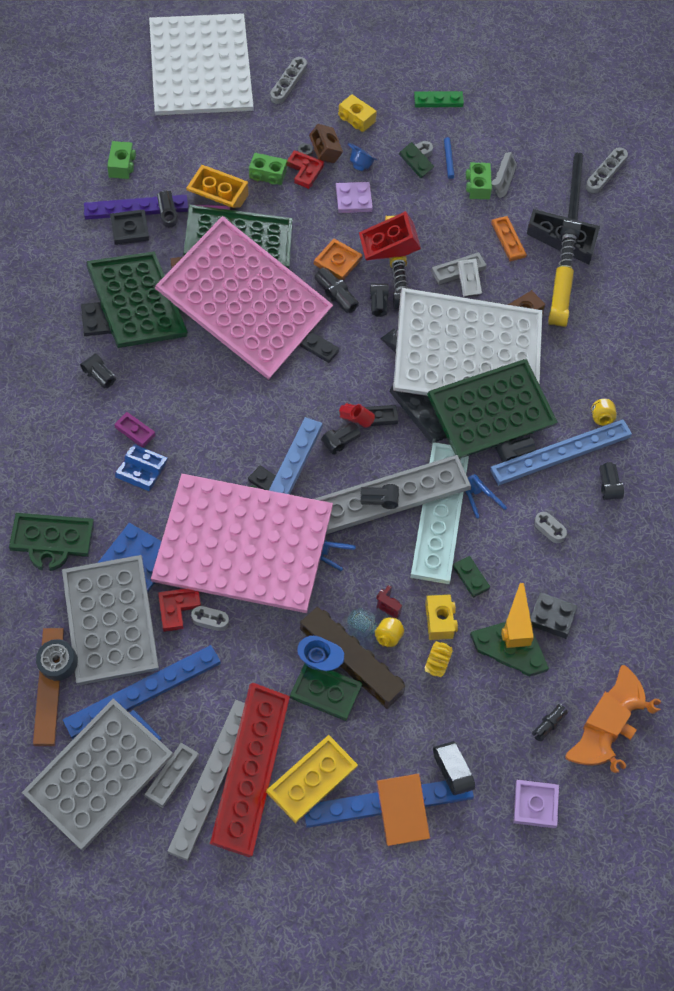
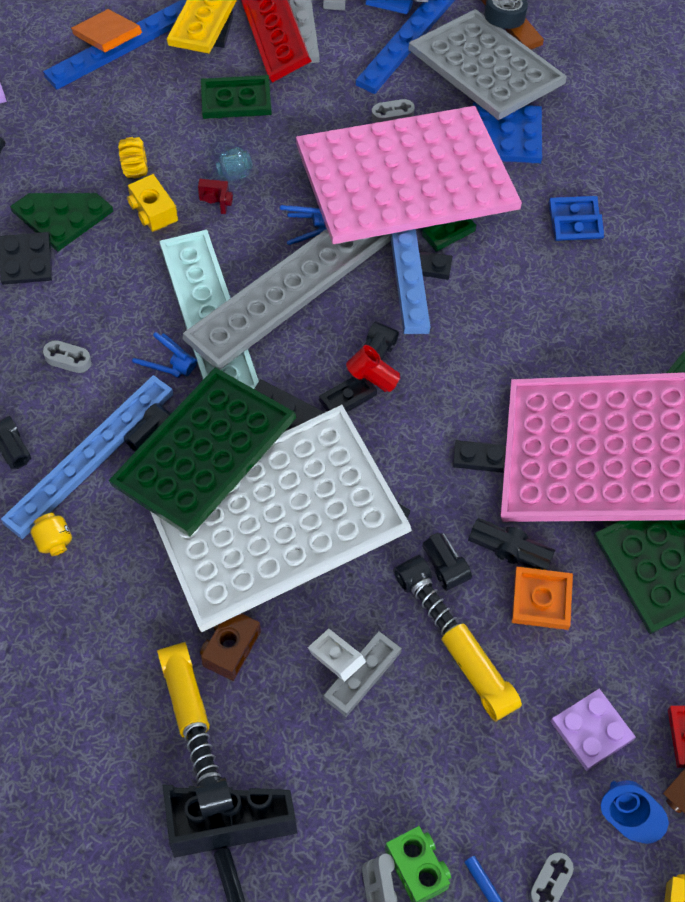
camera: 155 degrees right, 0 degrees up
(51, 537) = (605, 112): dark green plate -> none
(135, 429) = (615, 250): magenta plate -> none
(173, 603) = (433, 99): red plate -> none
(320, 653) = (256, 102): blue piece -> none
(357, 661) = (226, 130): dark brown brick -> none
(386, 496) = (277, 275): black piece -> none
(389, 632) = (199, 165): yellow head -> none
(390, 238) = (482, 639): red slope -> none
(416, 160) = (542, 850): dark green plate -> none
(454, 768) = (71, 74): beam -> none
(471, 576) = (138, 264): dark green plate -> none
(508, 238) = (316, 779): orange tile -> none
(518, 625) = (58, 214): light orange slope -> none

